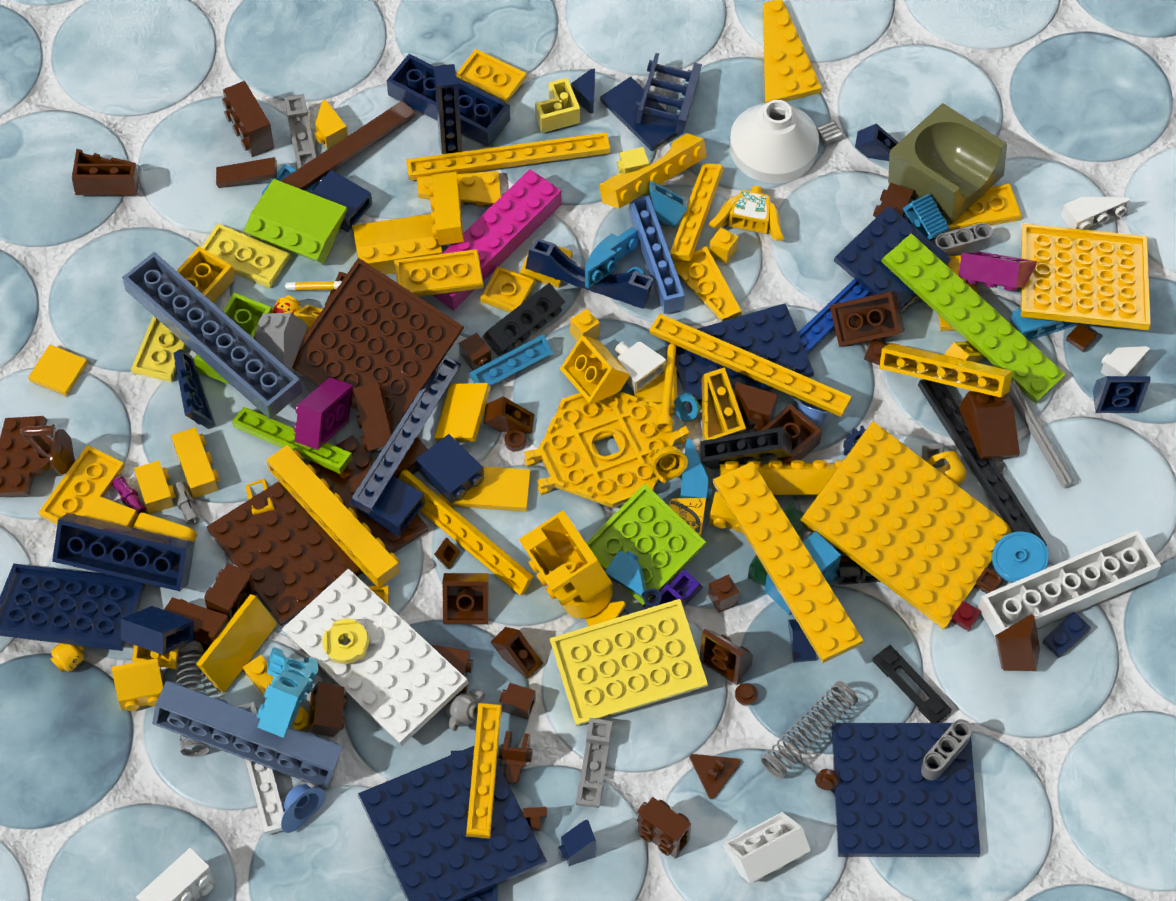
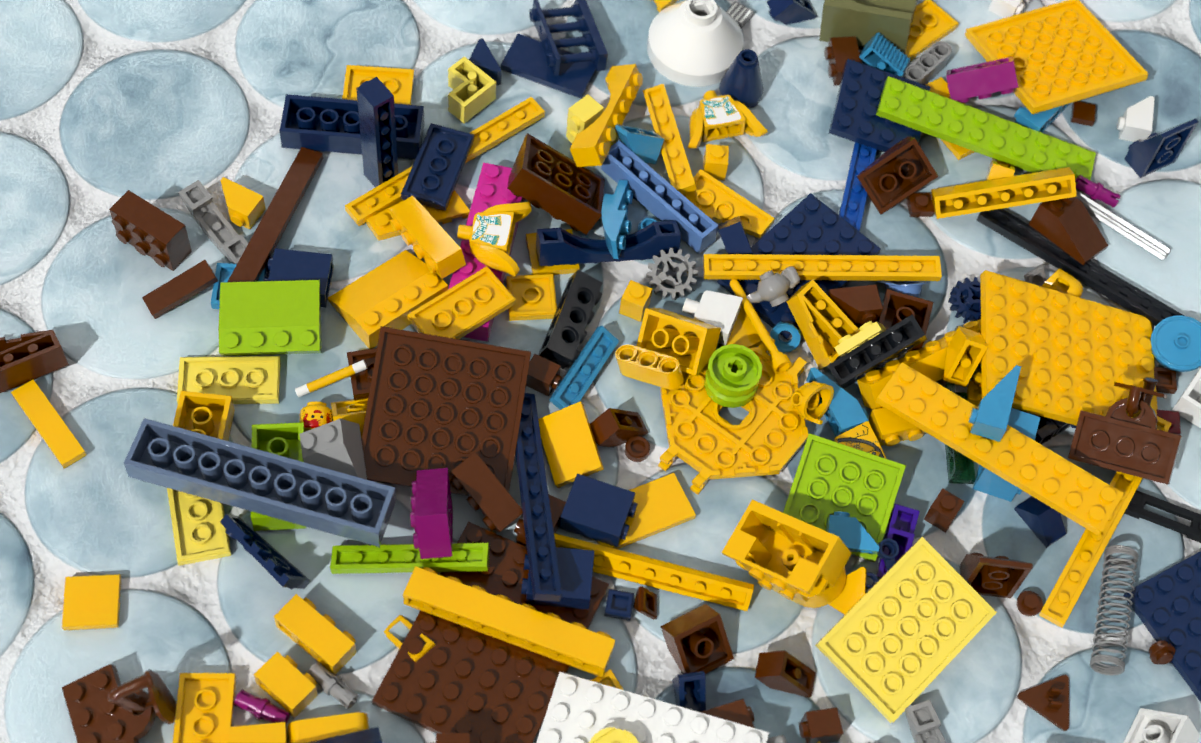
camera: 35 degrees left, 0 degrees up
(99, 231) = (48, 423): none -> yellow tile
(426, 545) = (619, 604): none -> dark blue tile
(435, 627) = (690, 691): none -> dark blue slope
(495, 158) = (438, 166): none -> dark blue tile
(497, 226) = (493, 235): none -> yellow torso
(559, 381) = (649, 366): none -> yellow beam
(576, 209) = (557, 185): none -> reddish brown slope
(617, 415) = (733, 375): none -> lime wheel
(633, 325) = (681, 269): none -> light grey gear
(695, 311) = (734, 237): none -> dark blue slope
(698, 362) = (774, 286): none -> light grey piece
(740, 426) = (867, 332): none -> light yellow wing
(790, 189) = (743, 79): none -> dark blue cone
(797, 525) = (993, 411): none -> dark azure slope
(812, 481) = (963, 356): none -> yellow slope
(838, 668) = (1089, 551): none -> yellow plate
(901, 600) = (1127, 442): none -> reddish brown plate
(1040, 405) = (1097, 191): none -> magenta pin

